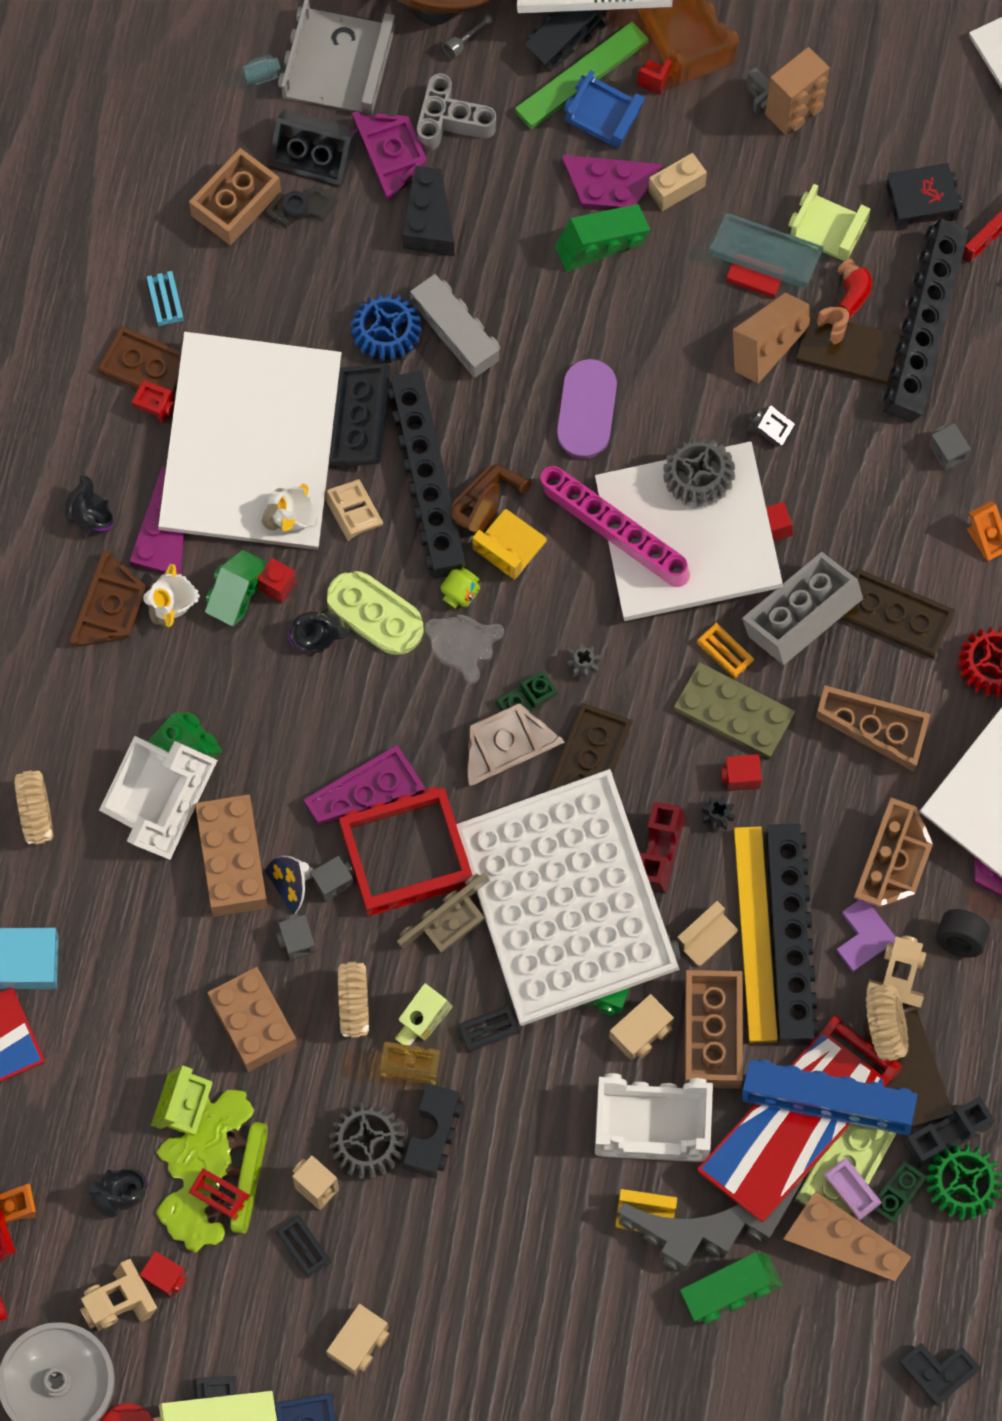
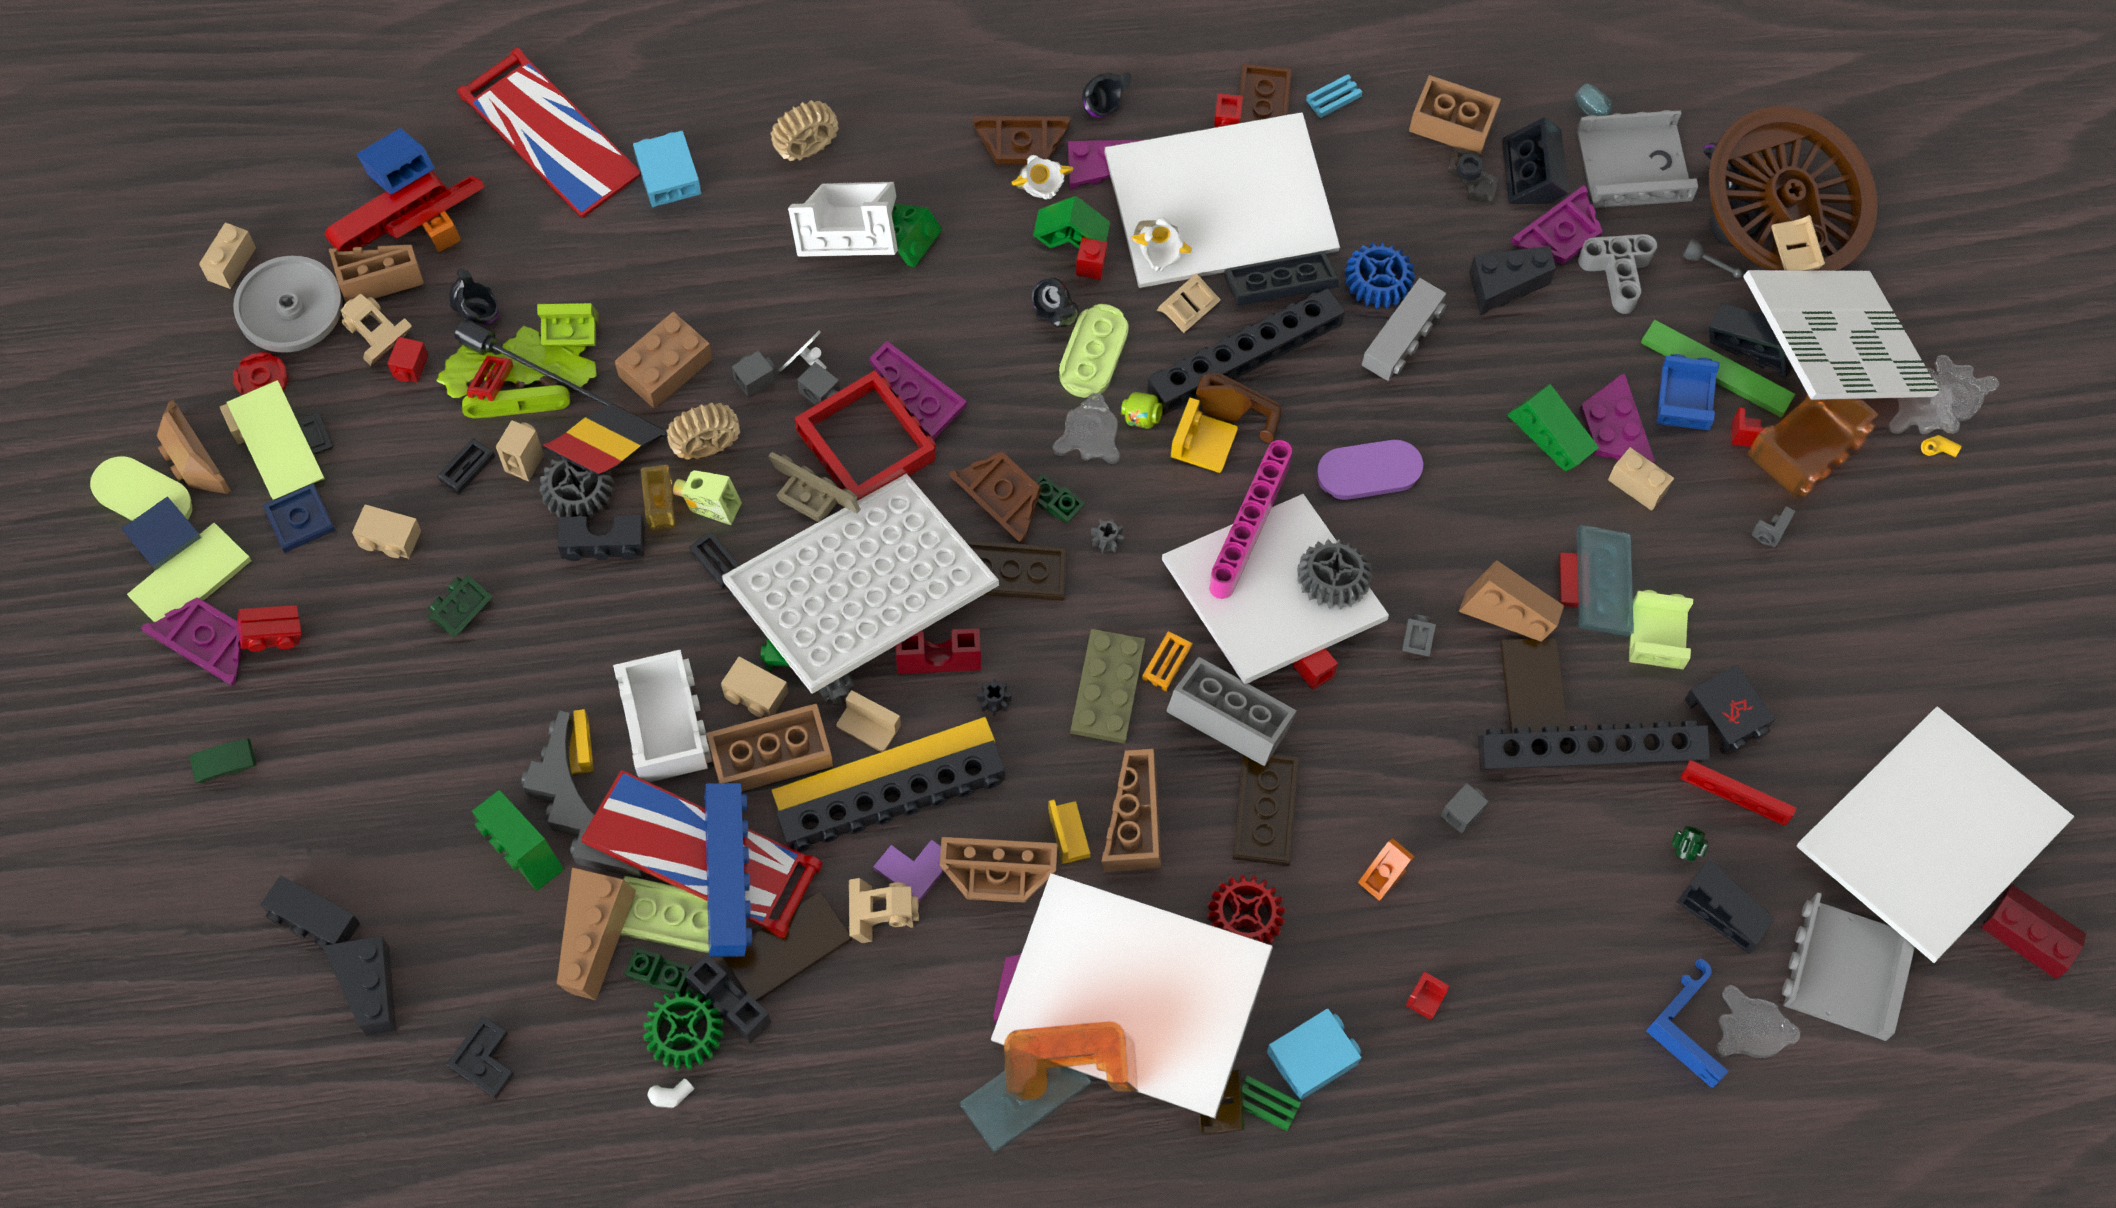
camera: 70 degrees right, 5 degrees down
(48, 1284) = (376, 271): none -> medium nougat wedge
(231, 855) = (813, 298): medium nougat brick -> none
(325, 1100) = (595, 442): none -> flag
(461, 1287) = (460, 605): none -> dark green bracket
(741, 772) = (1043, 707): red brick -> none
(797, 91) = (1784, 550): medium nougat brick -> none
(852, 1188) = (645, 923): lavender tile -> none
(858, 288) = (1598, 675): piece -> none
(868, 789) = (1068, 831): none -> yellow panel
(887, 1022) = (817, 900): tan gear -> none
(962, 933) = (941, 957): black tyre -> none

